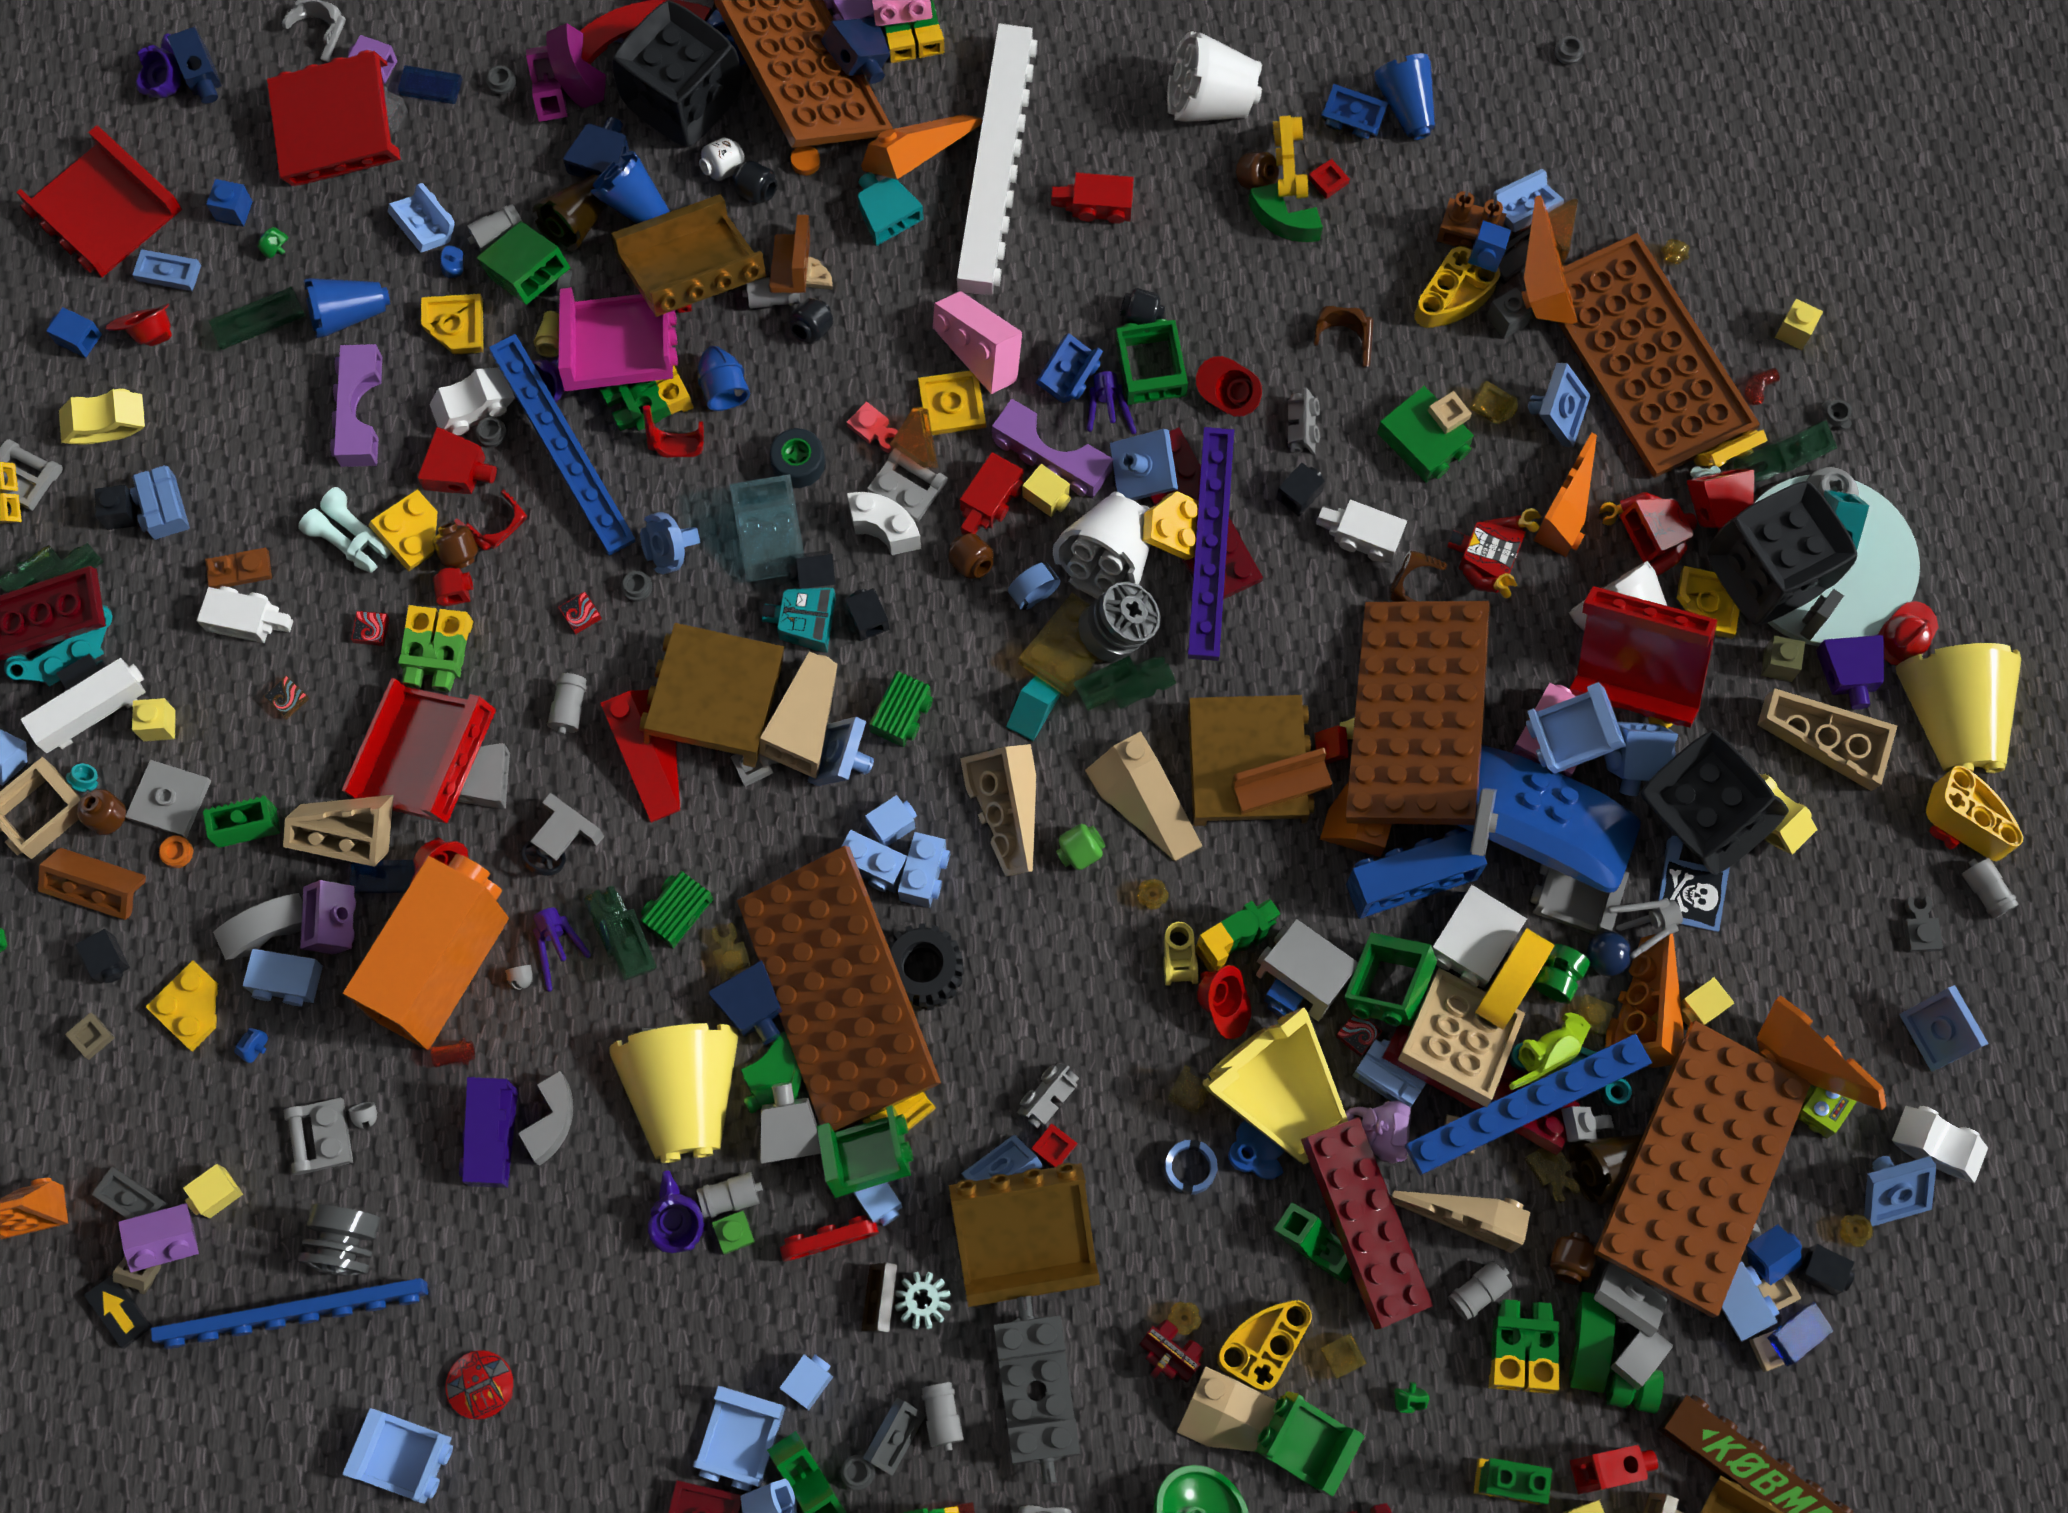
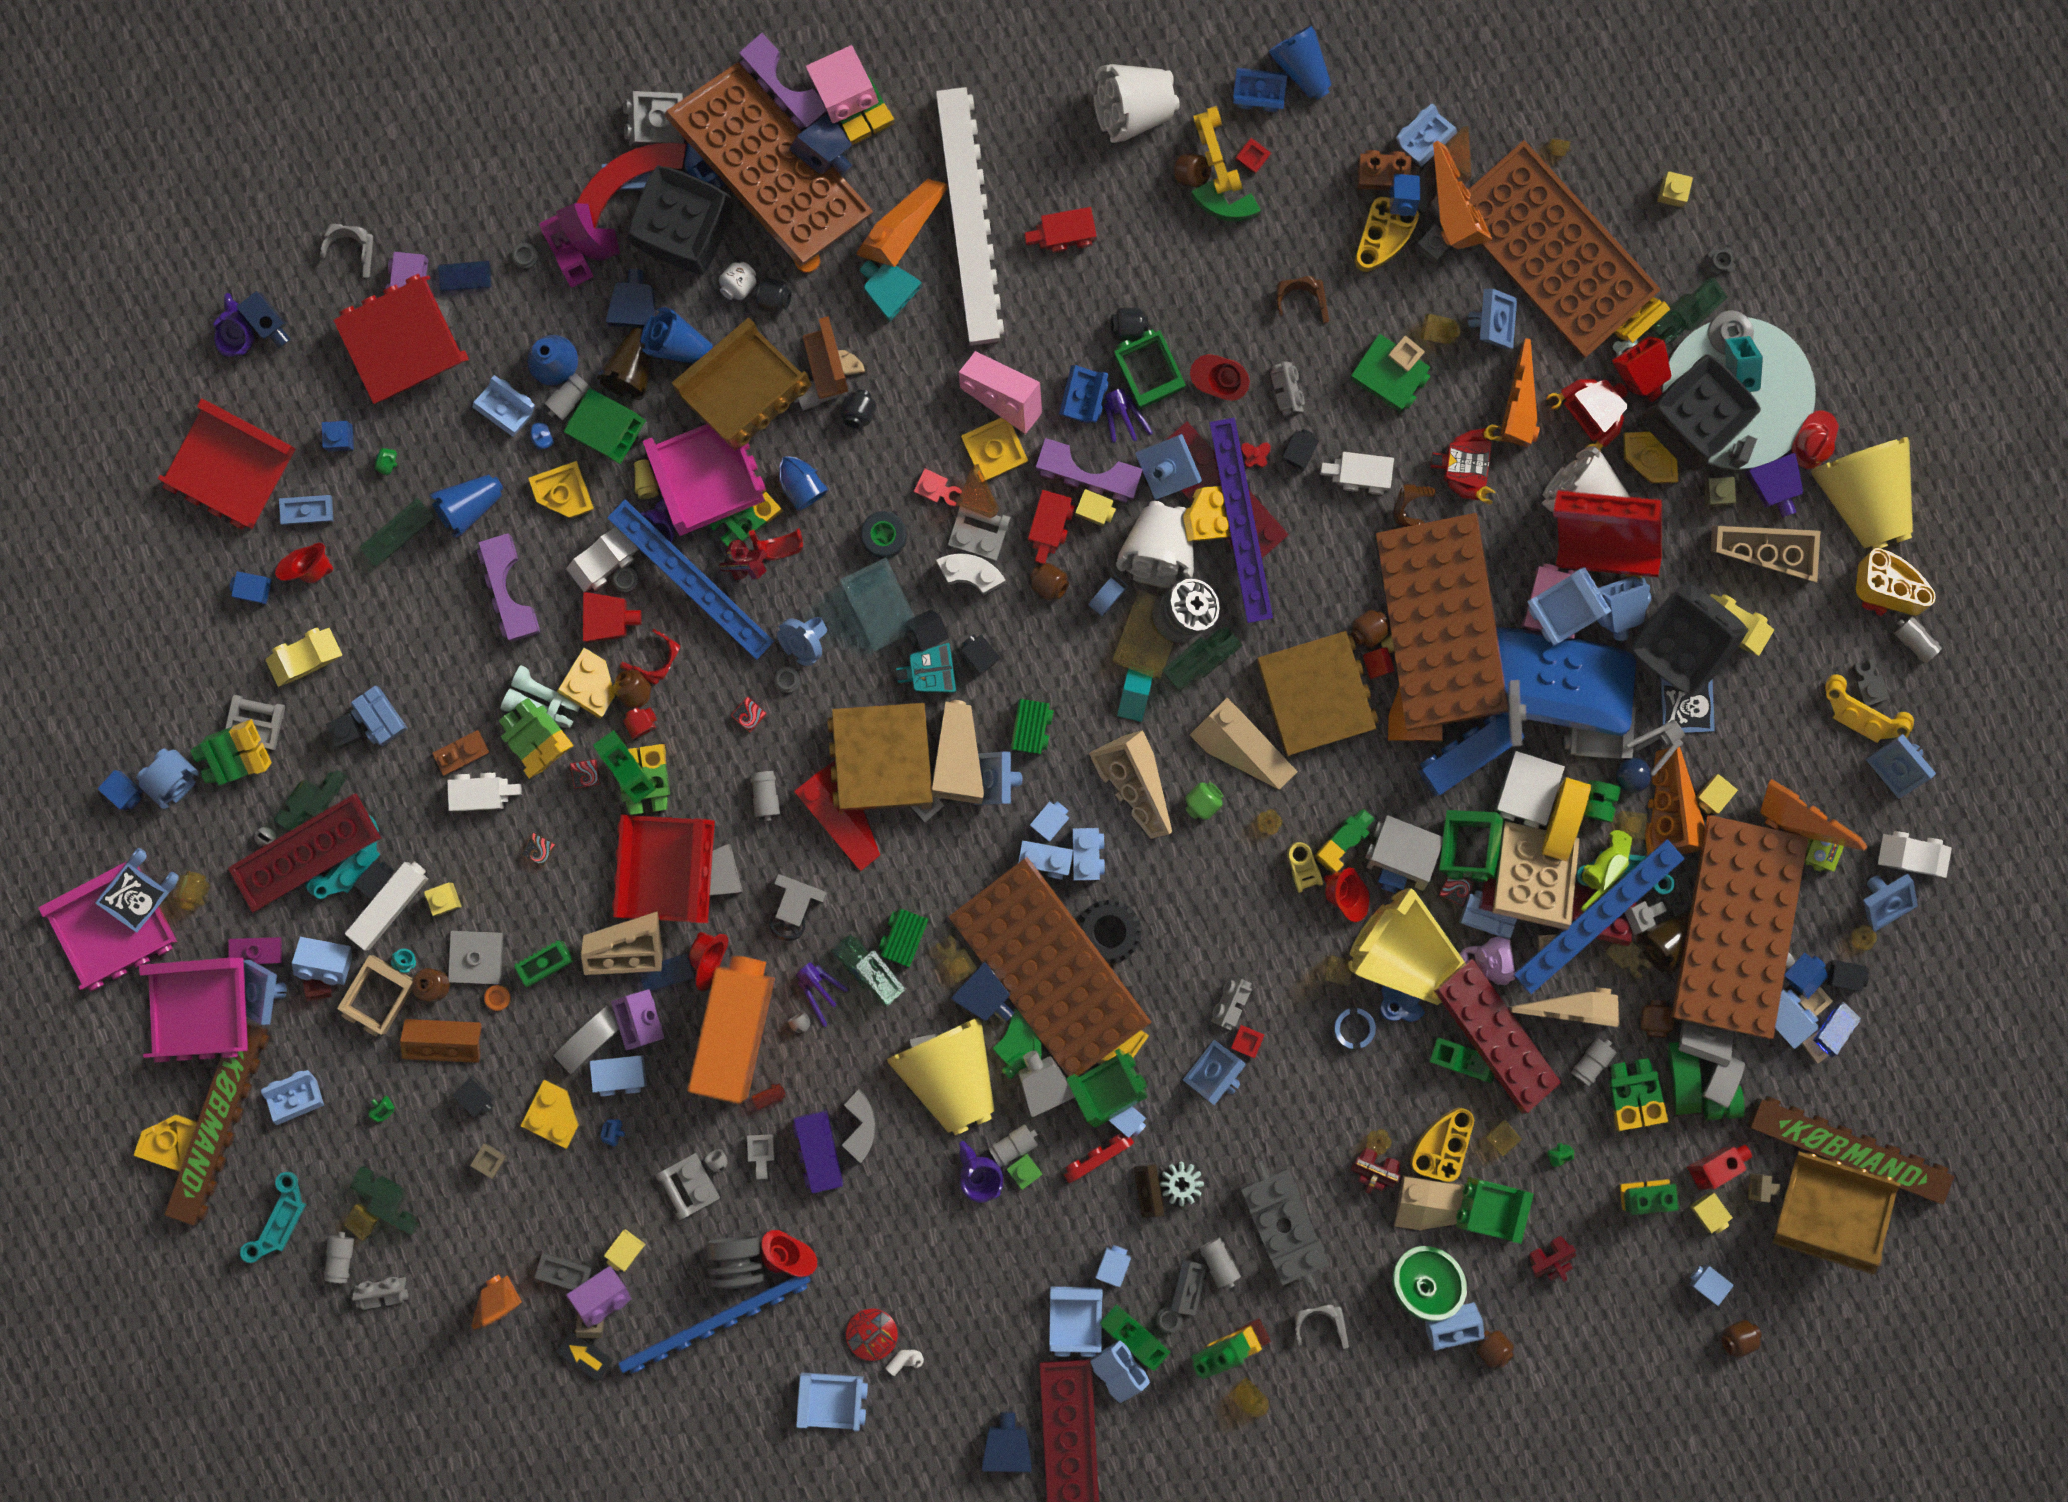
camera: 15 degrees left, 15 degrees up
(324, 568) = (534, 737): none -> bright green hips
(406, 1250) = (786, 1254): none -> red piece
(412, 620) = (624, 767): none -> green brick
(419, 1116) = (761, 1150): none -> light grey plate
(490, 181) = (552, 360): none -> blue cone
(509, 1427) = (905, 1358): none -> white arm
(628, 444) = (744, 561): none -> dark red hips
(1024, 1234) = (1245, 1118): pearl gold panel -> none
(1247, 484) = (1255, 455): none -> red piece
(1281, 781) = (1349, 711): dark orange panel -> none
(1331, 702) = (1370, 628): none -> reddish brown head
(1757, 383) = (1651, 251): clear red arm -> none
(1904, 961) = (1862, 717): none -> yellow plate

